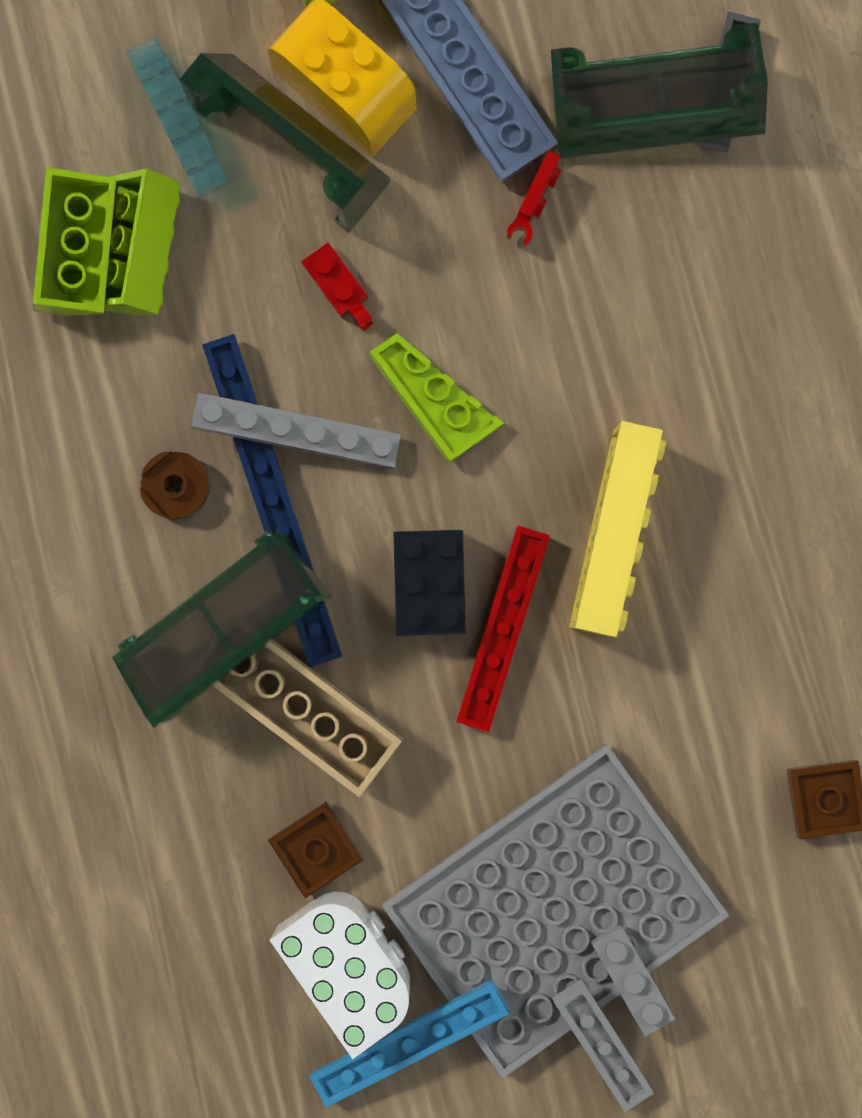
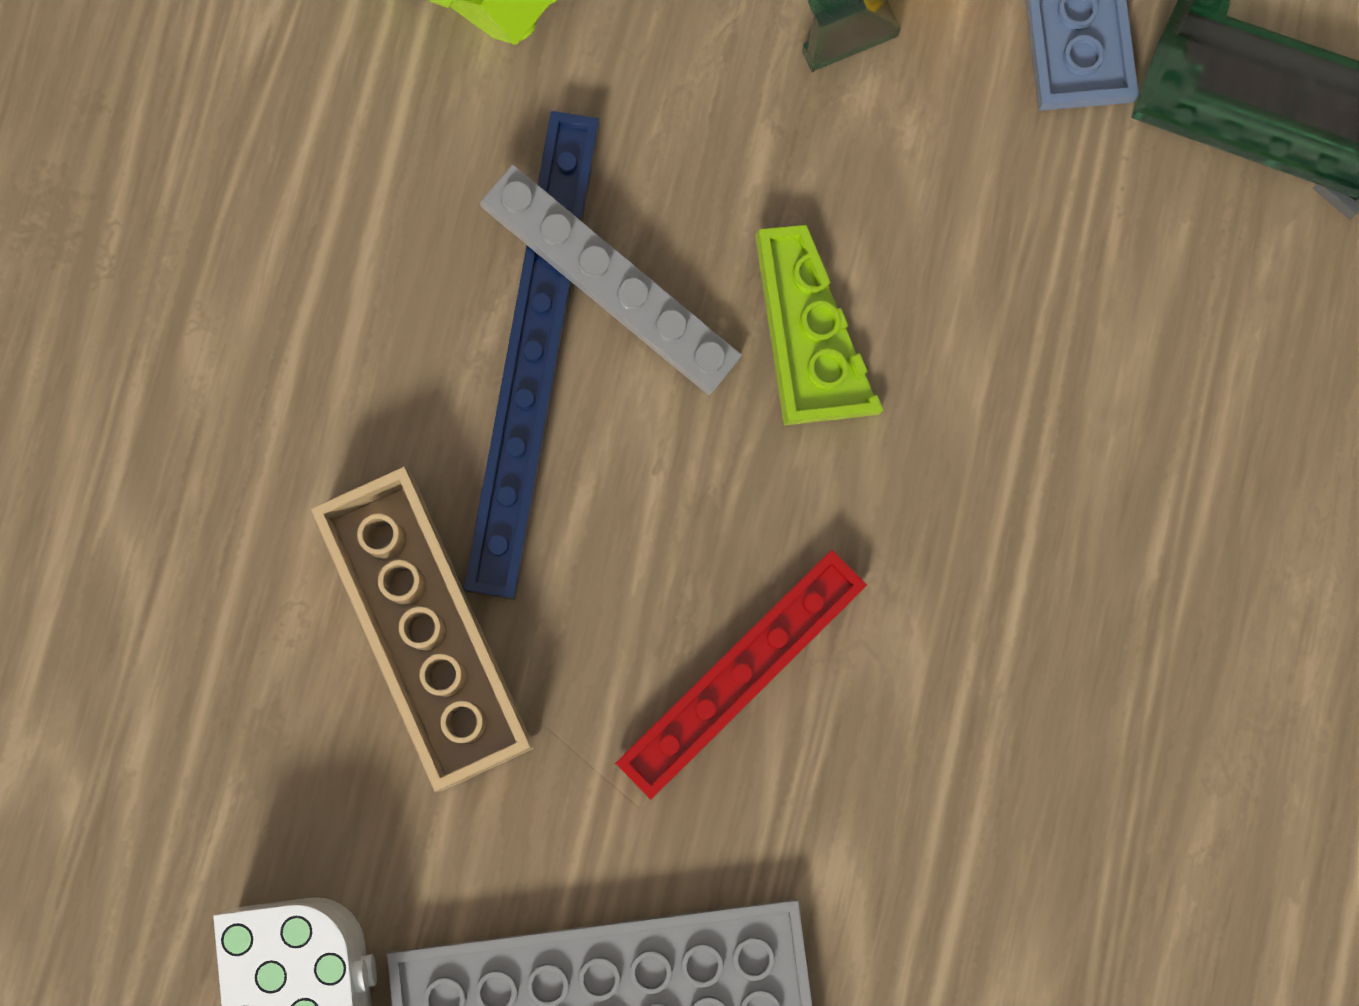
camera: 20 degrees right, 5 degrees down
(155, 482) = (396, 254): reddish brown plate -> none
(219, 627) = (375, 474): windscreen -> none
(315, 849) = (342, 833): reddish brown plate -> none
(338, 285) = (763, 128): red plate -> none
(429, 582) = (677, 563): black brick -> none
(534, 202) = (1070, 151): red plate -> none
(616, 529) = (957, 622): light yellow brick -> none

